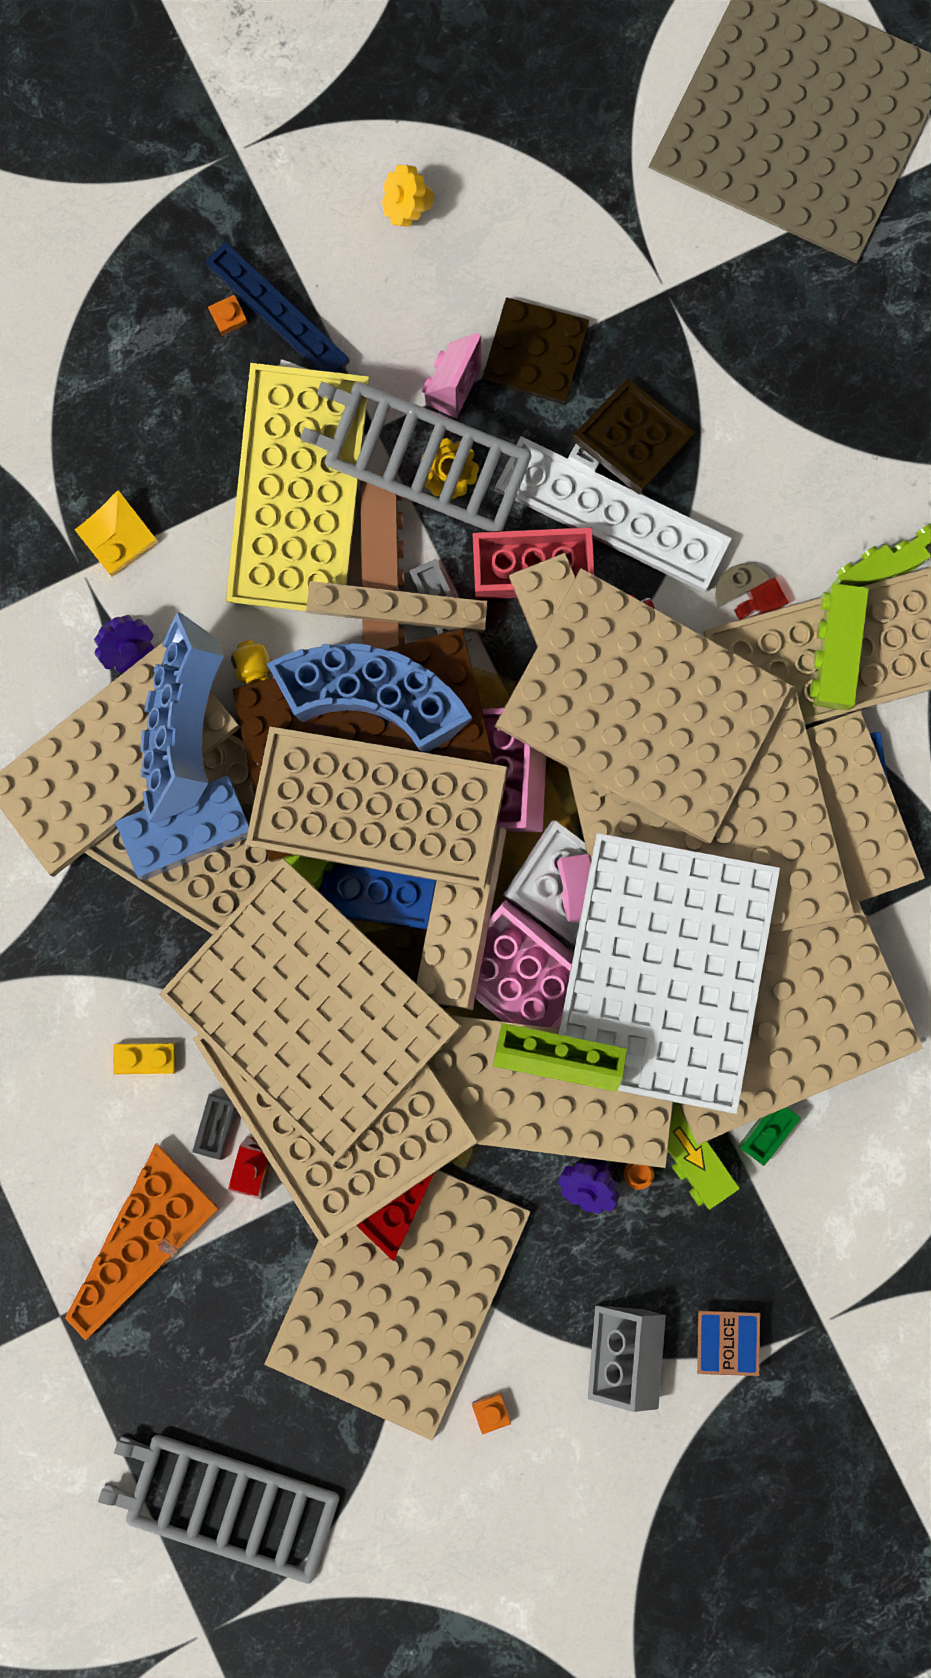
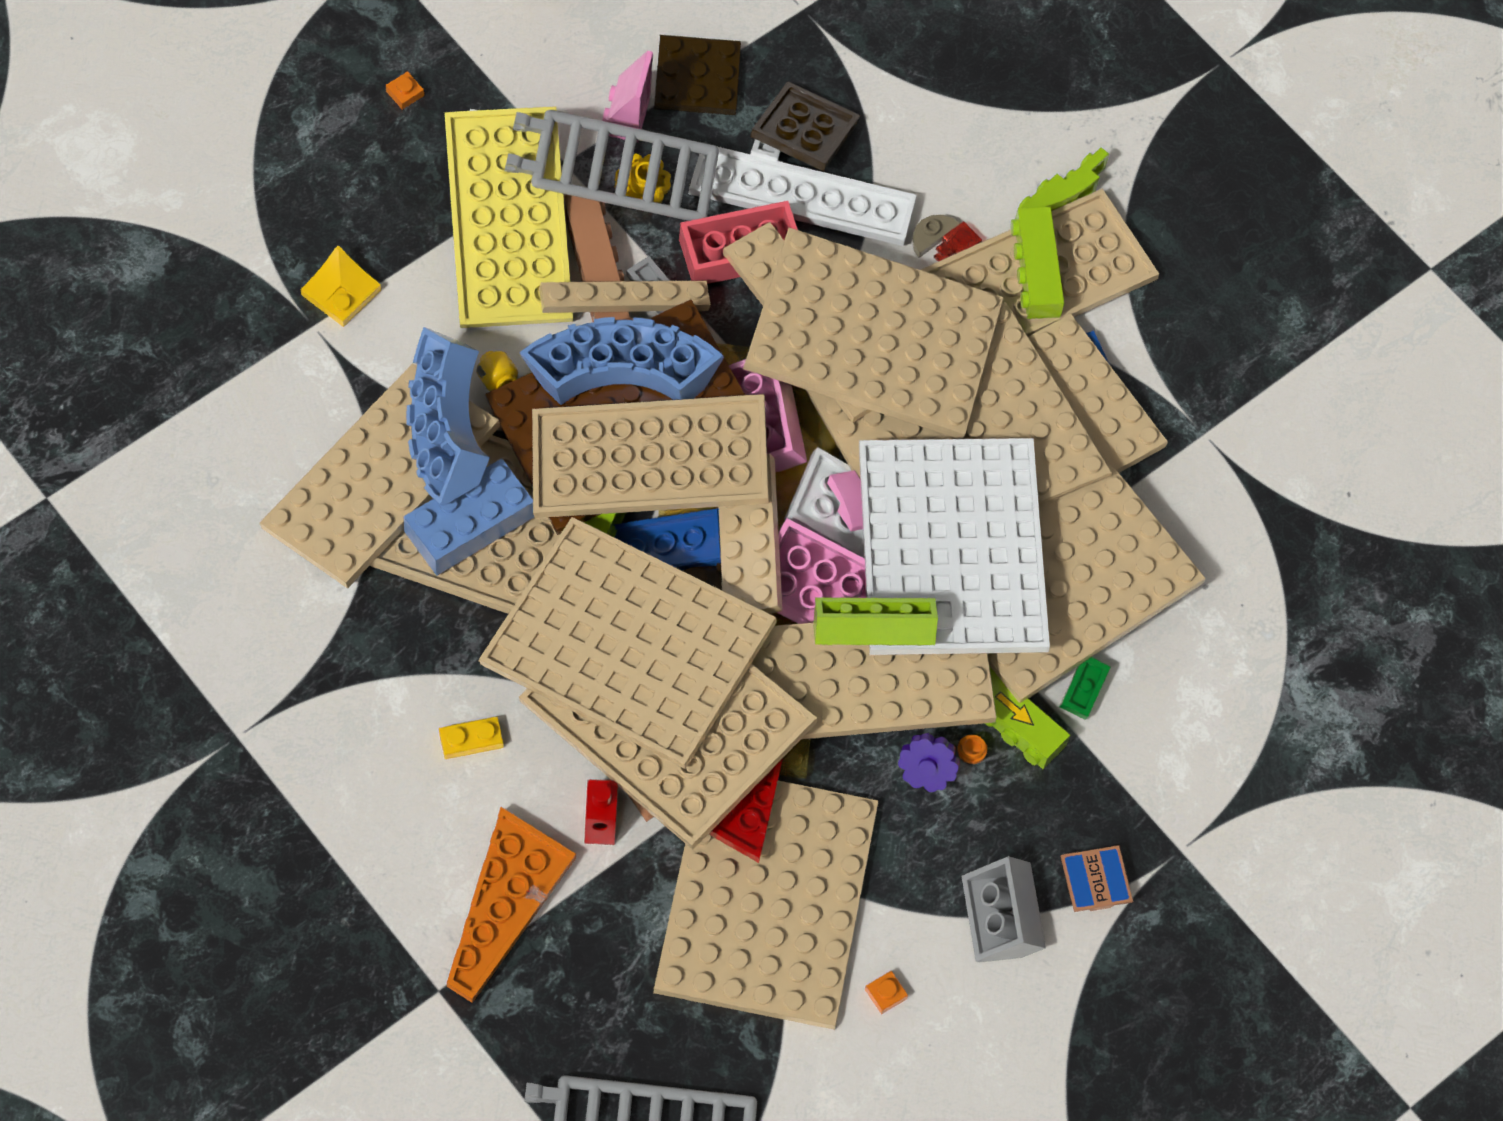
camera: 25 degrees left, 20 degrees down
(123, 643) = (372, 372): dark purple plant -> none
(204, 1122) = (552, 808): dark grey tile -> none
(276, 310) = (444, 74): dark blue plate -> none

